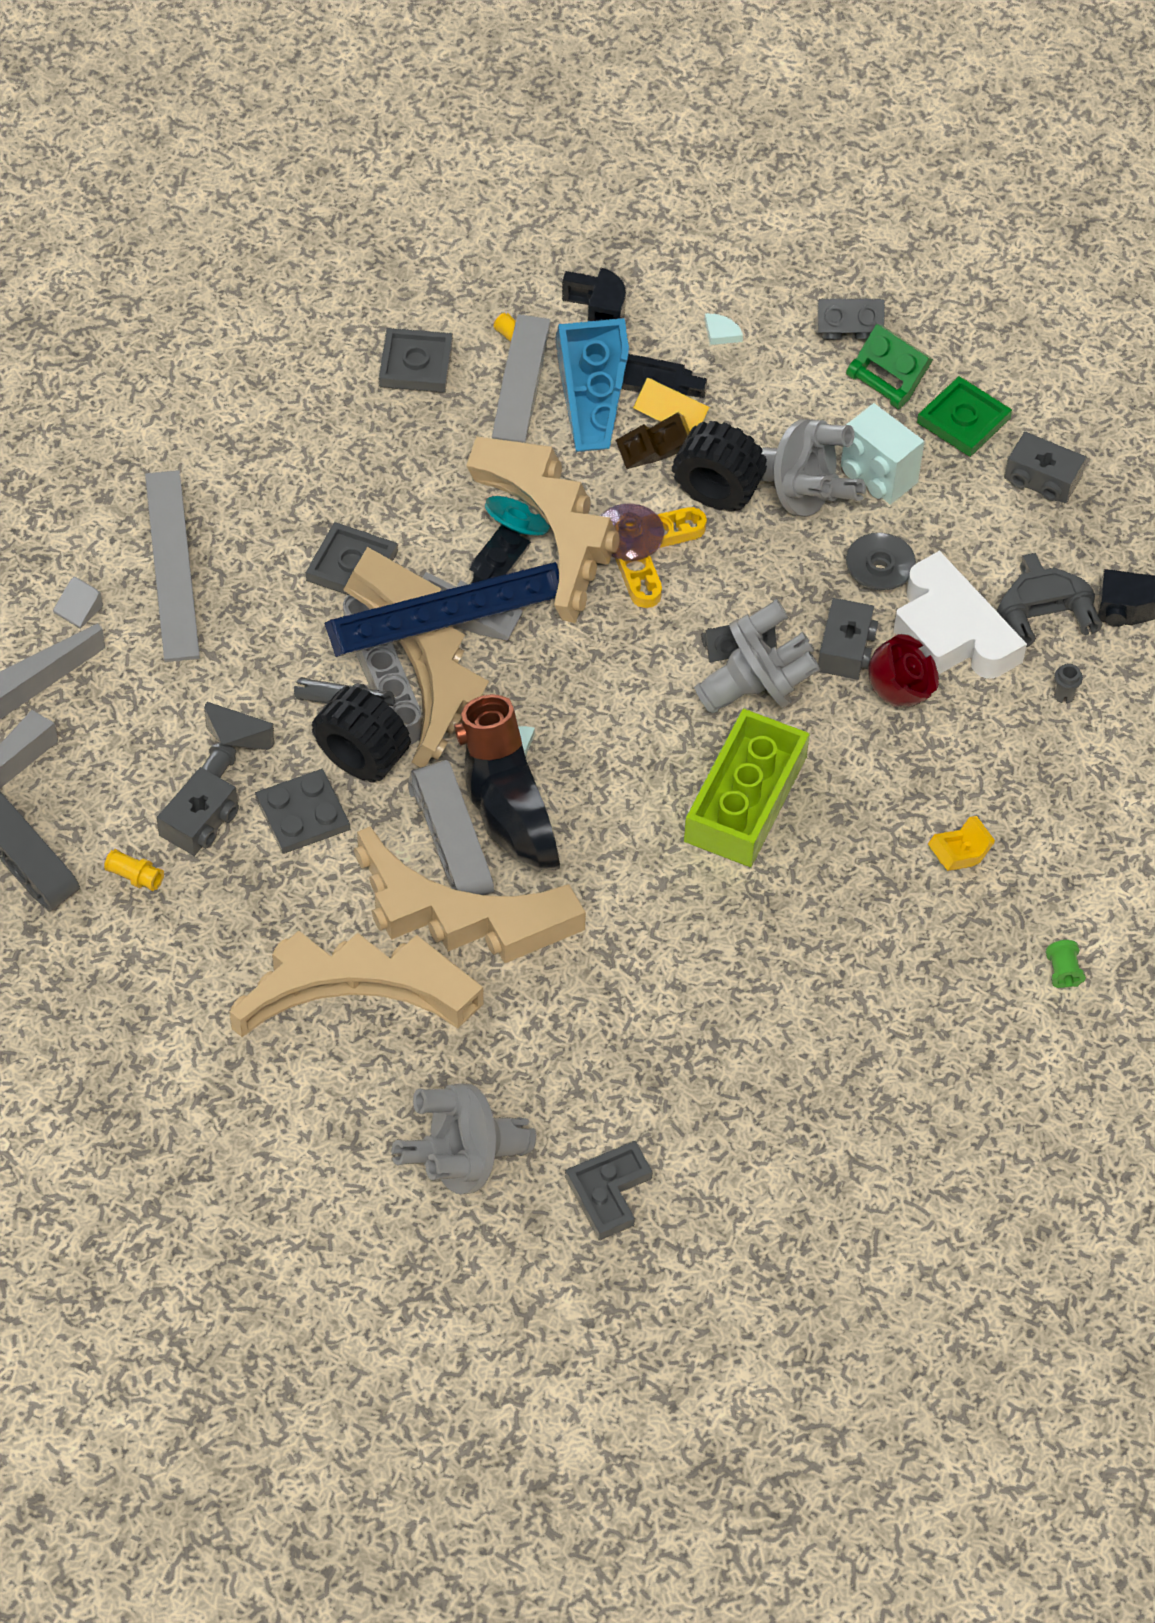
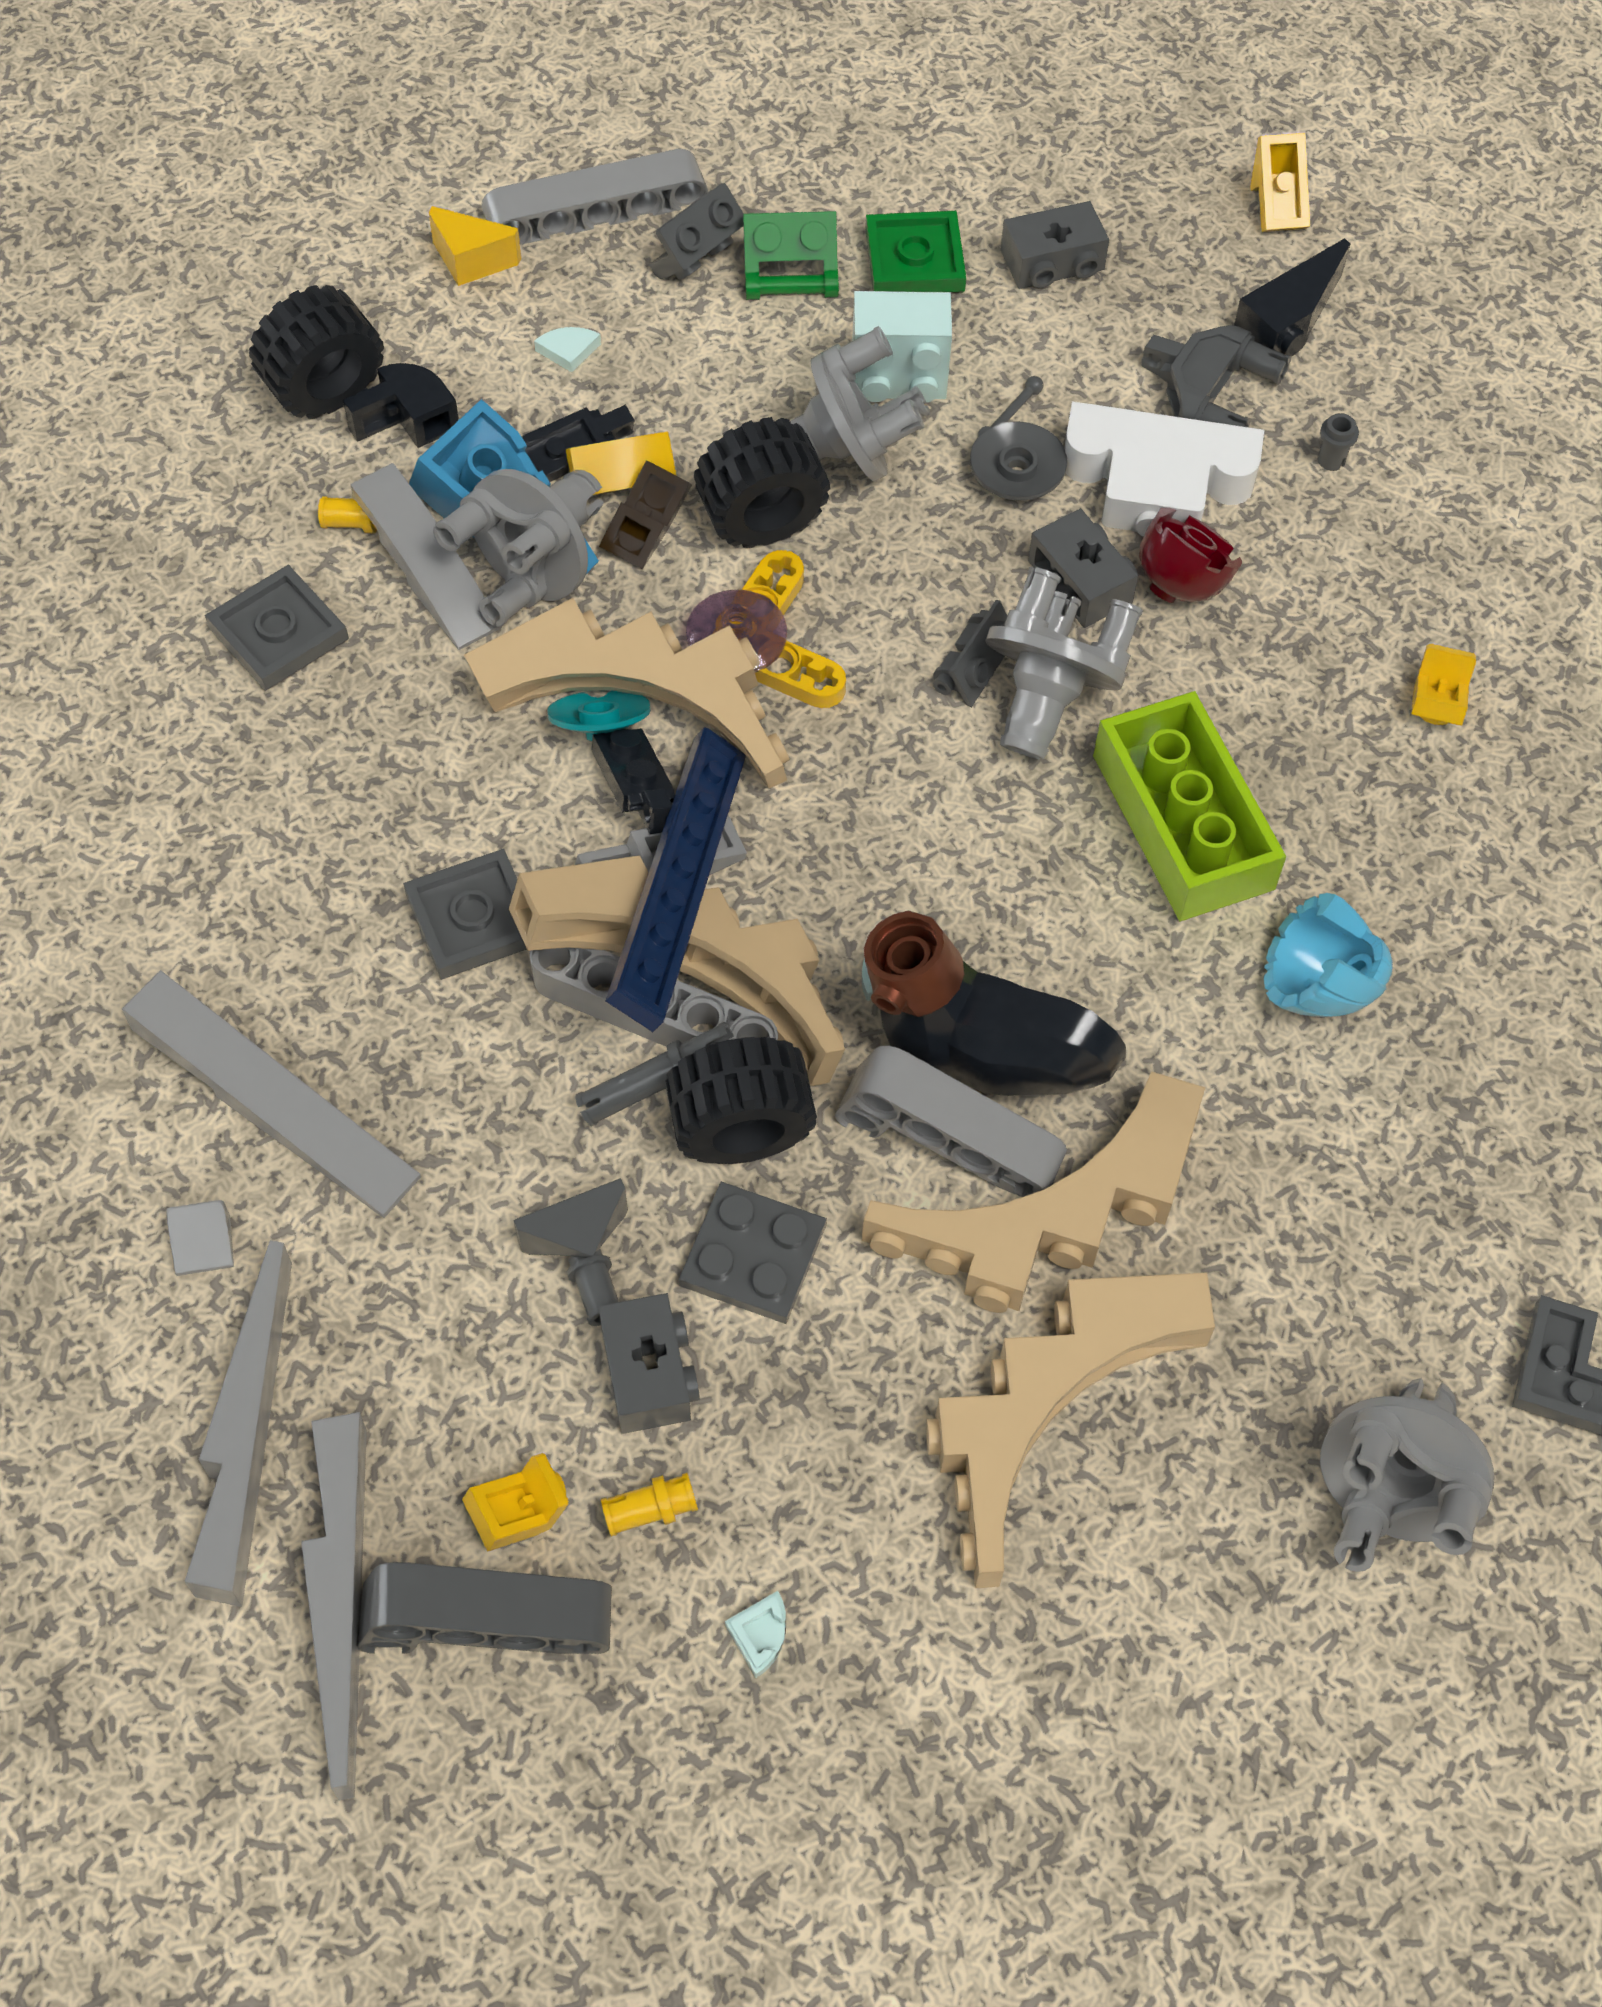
camera: 45 degrees left, 5 degrees up
(78, 820) = (517, 1504): none -> yellow bracket
(120, 960) = (759, 1632): none -> light aqua tile
(574, 402) = (526, 536): none -> light grey piece
(576, 235) = (316, 351): none -> black tyre
(722, 916) = (1326, 960): none -> medium azure hair
(729, 242) = (473, 245): none -> yellow slope
(824, 261) = (597, 195): none -> light grey beam
(945, 533) = (1032, 386): none -> dark grey hinge

